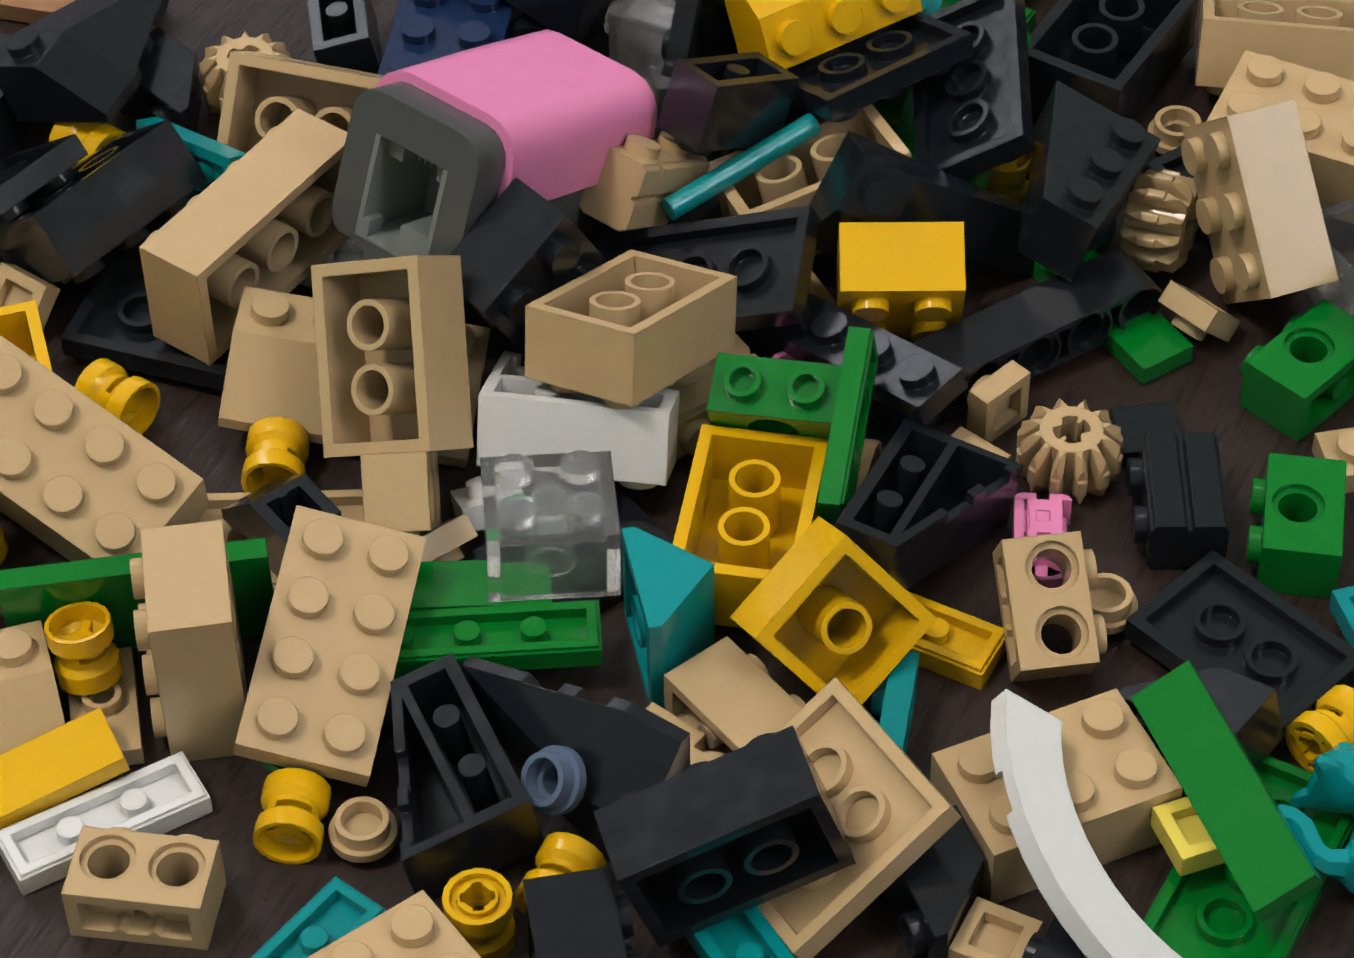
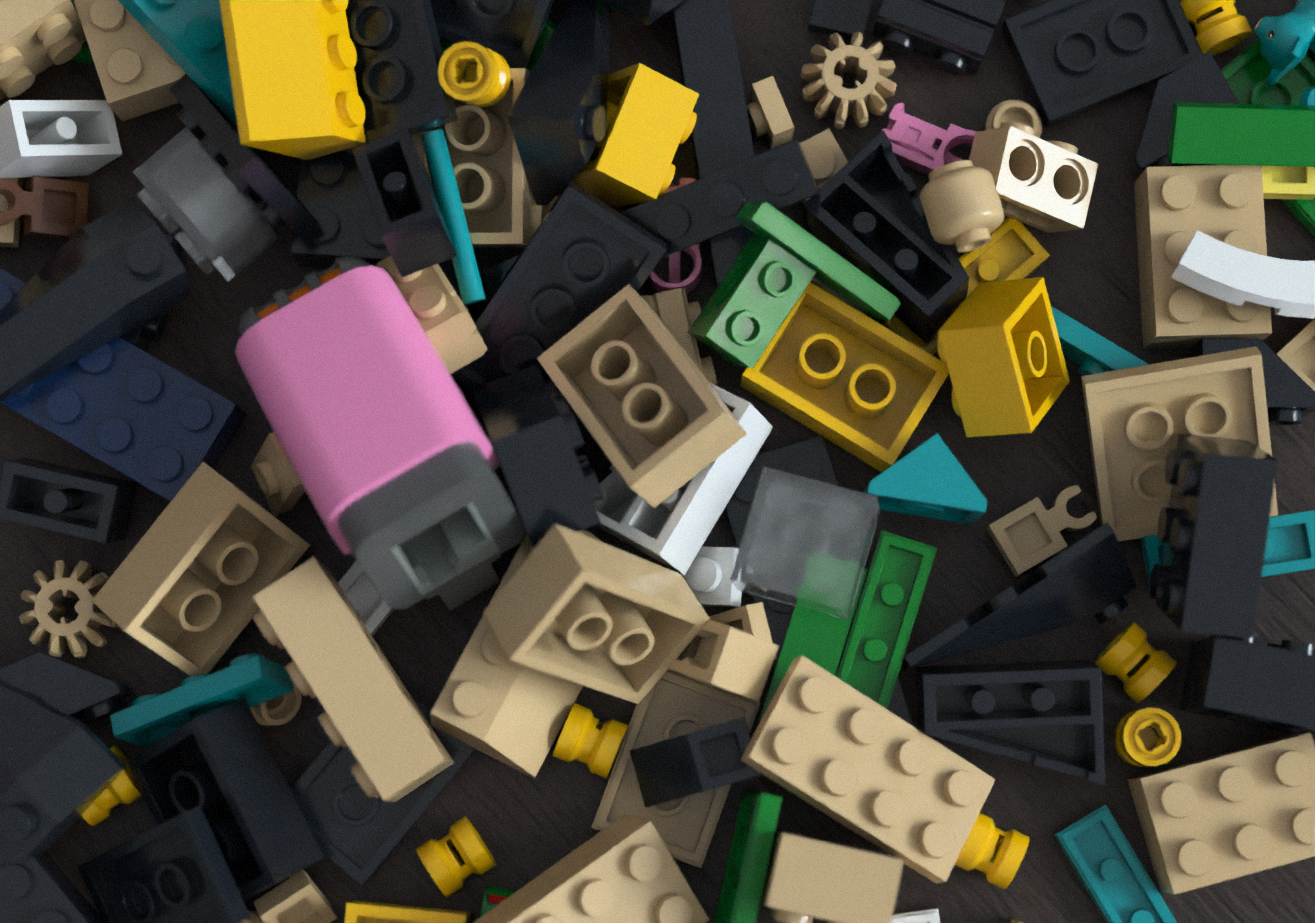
camera: 70 degrees left, 35 degrees up
(363, 830) = (1016, 797): tan plate -> none
(554, 779) = (1071, 638): sand blue plate -> none
(728, 696) = (1029, 465): tan brick -> none
(877, 103) = (485, 81): none -> yellow wheel
(969, 512) = (961, 205): none -> tan head

